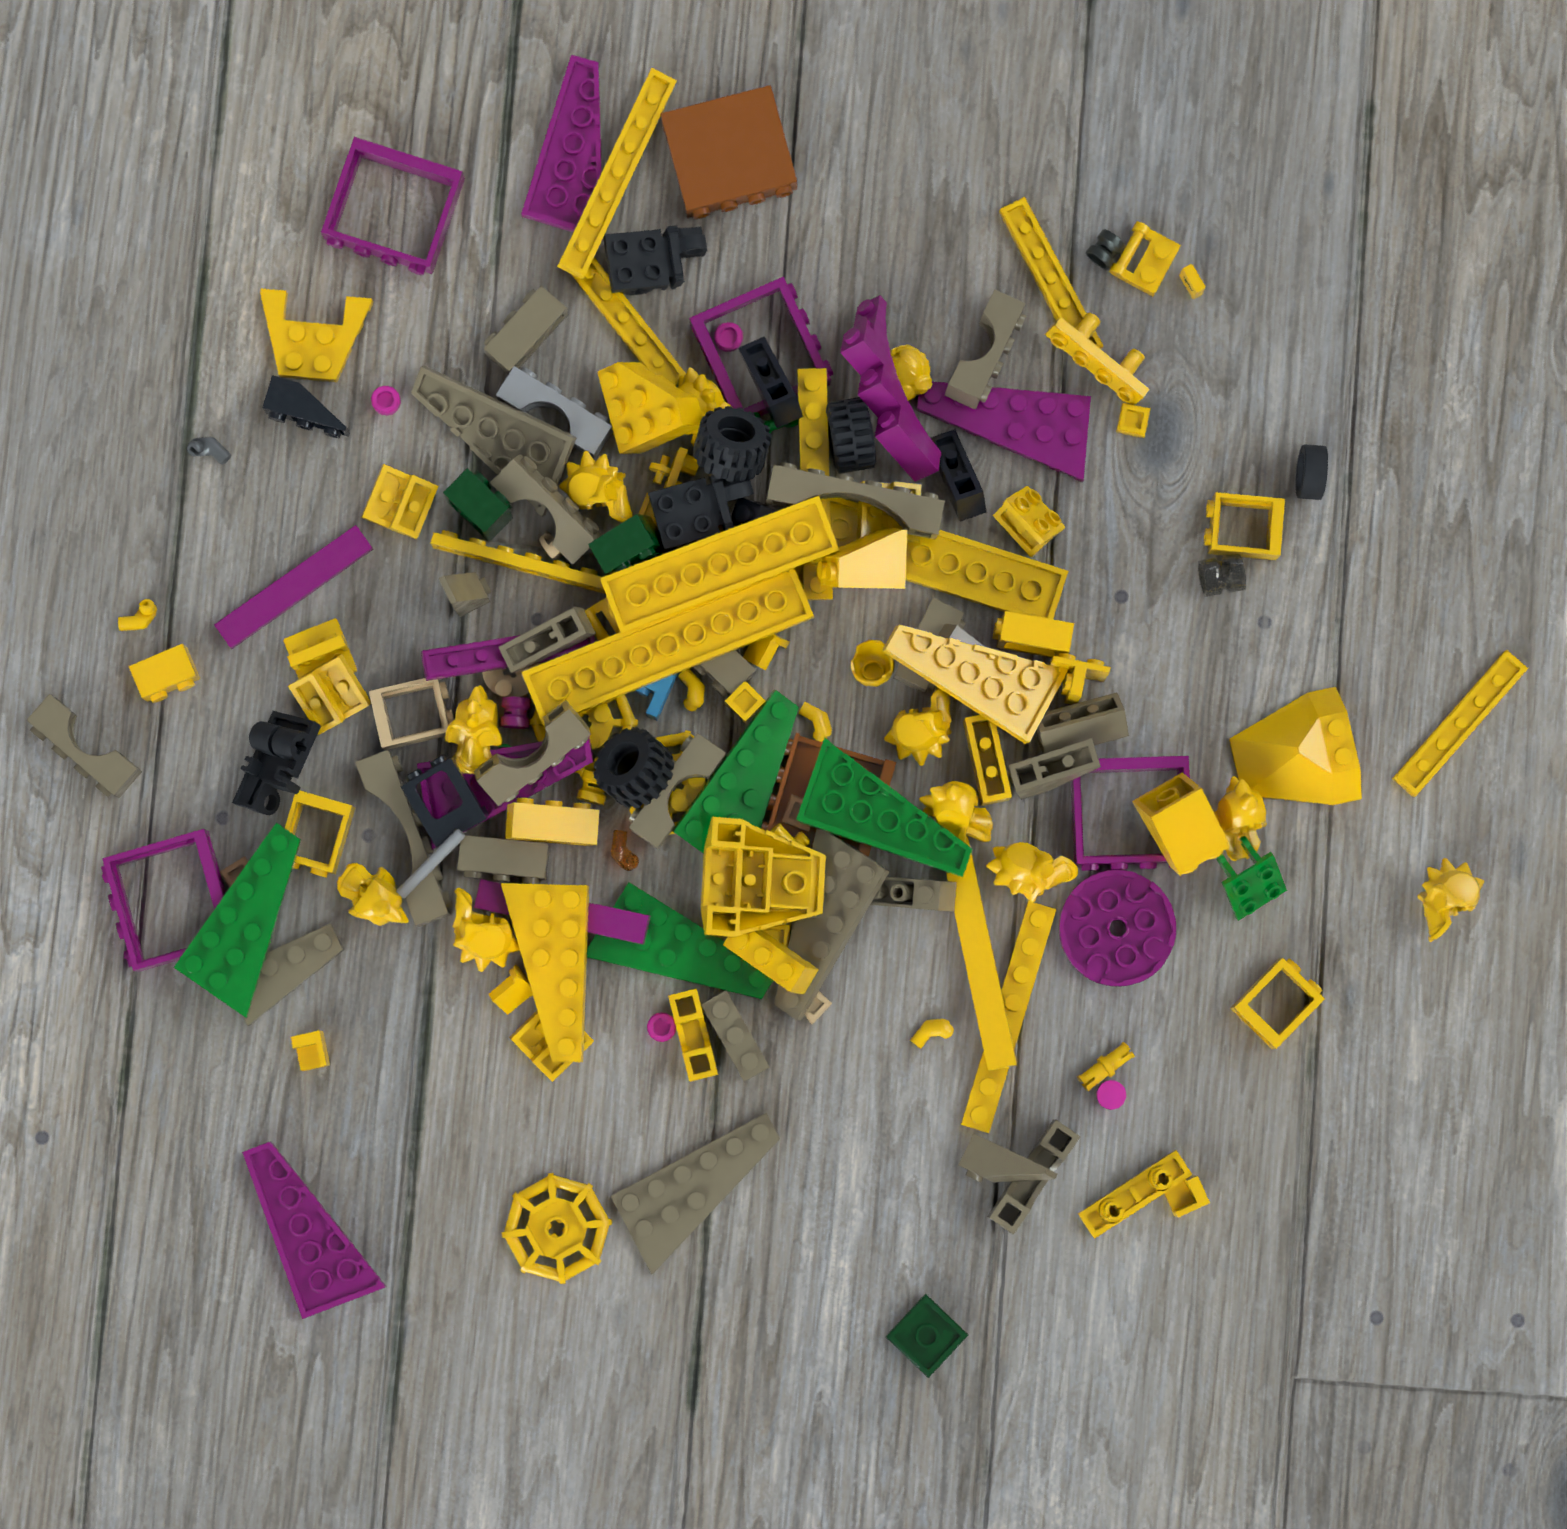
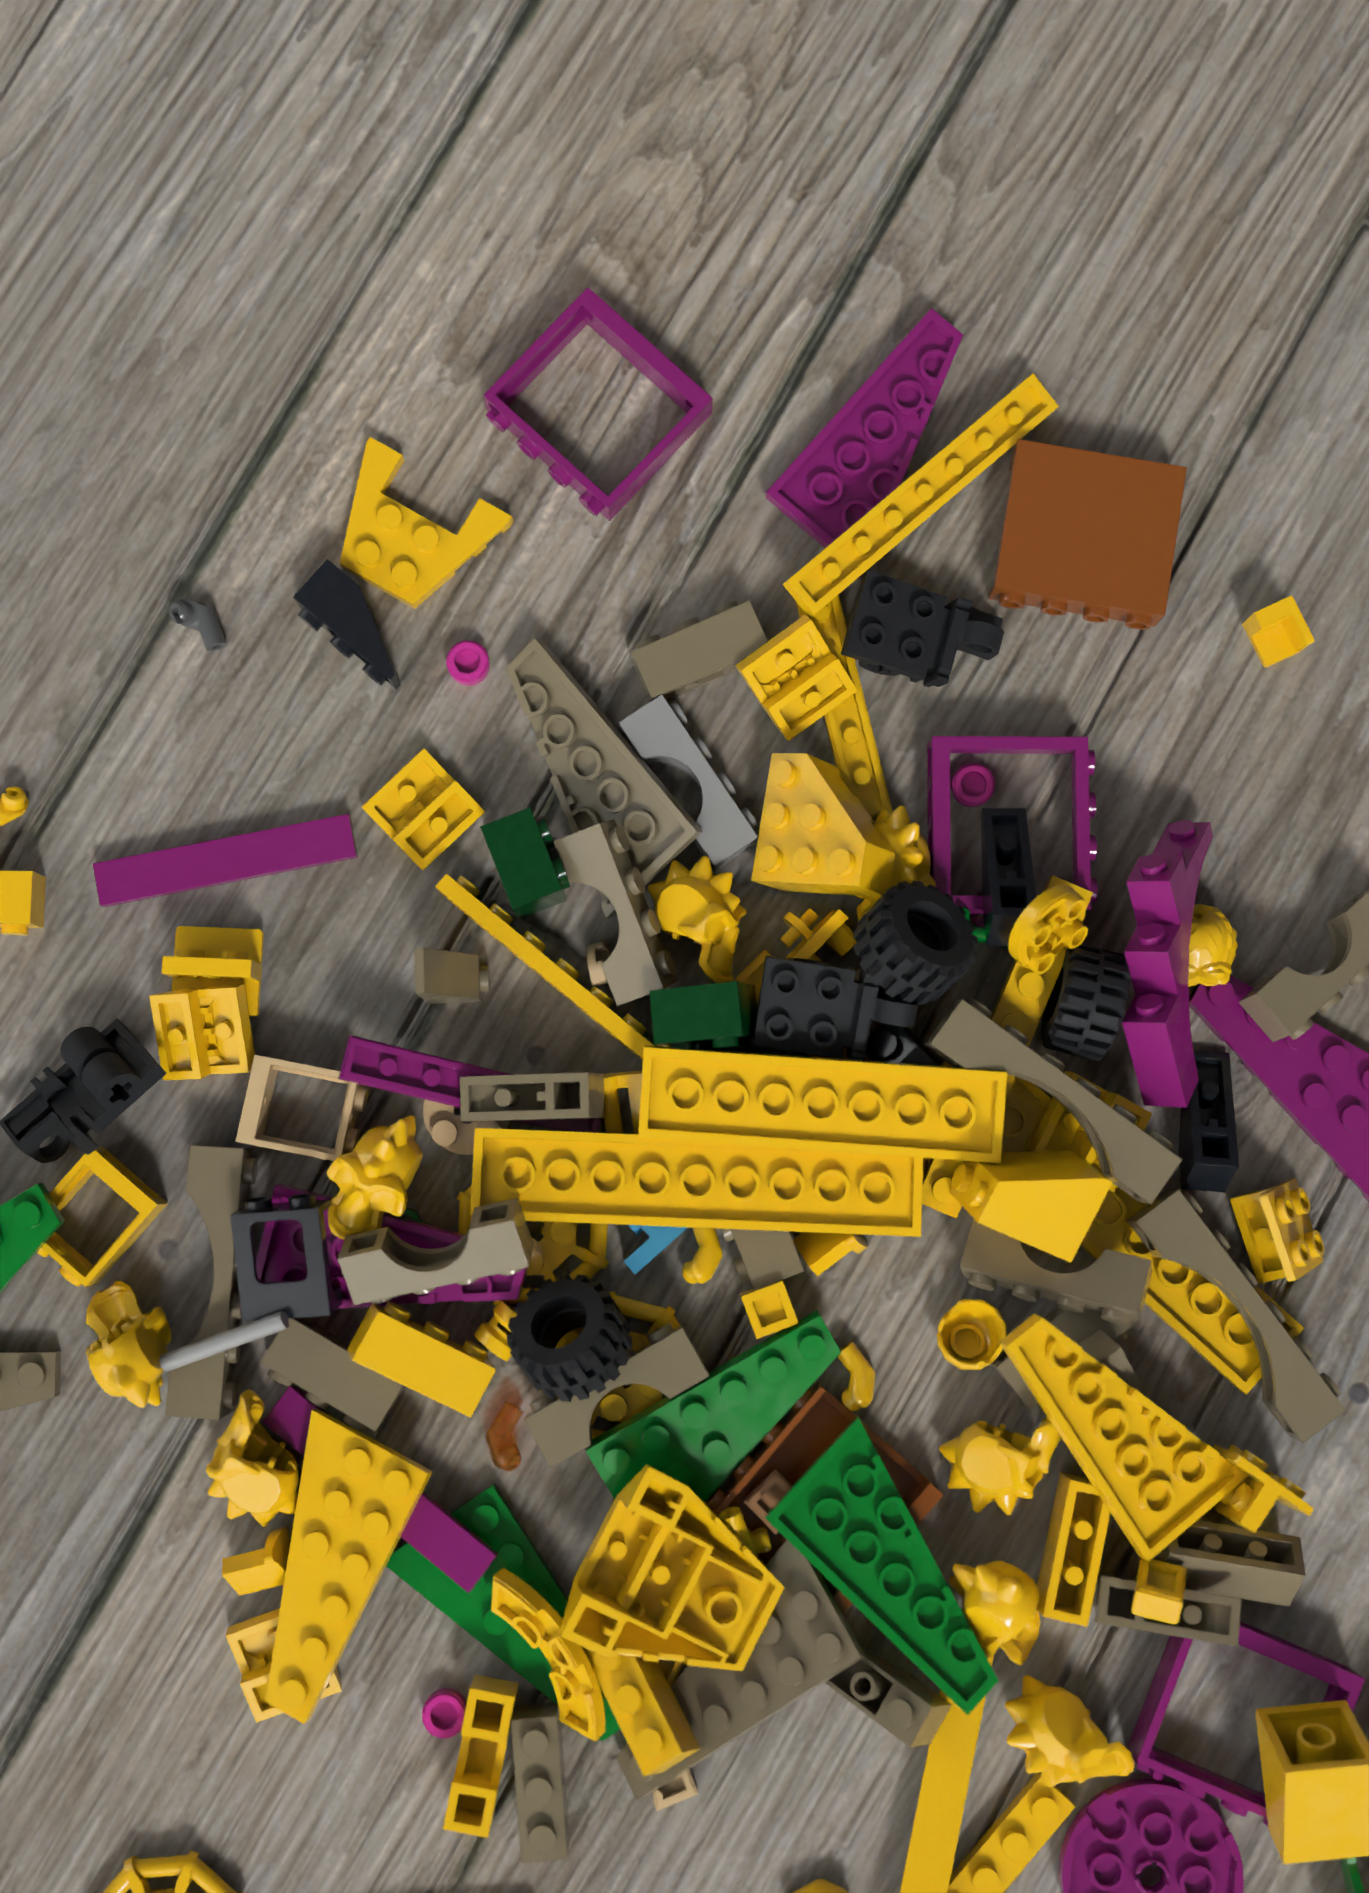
camera: 25 degrees right, 0 degrees up
(515, 712) = (444, 1174): magenta wheel -> none
(591, 319) = (796, 677): none -> yellow slope
(721, 957) = (571, 1673): none -> yellow tile
(806, 400) = (1048, 928): none -> yellow tile
(871, 160) = (1278, 631): none -> yellow panel
(938, 594) = (1111, 1285): none -> dark tan arch
(969, 549) = (1290, 1384): none -> dark tan arch
(1033, 634) = (1219, 1402): yellow window -> none
(1042, 756) = (1159, 1591): none -> yellow slope

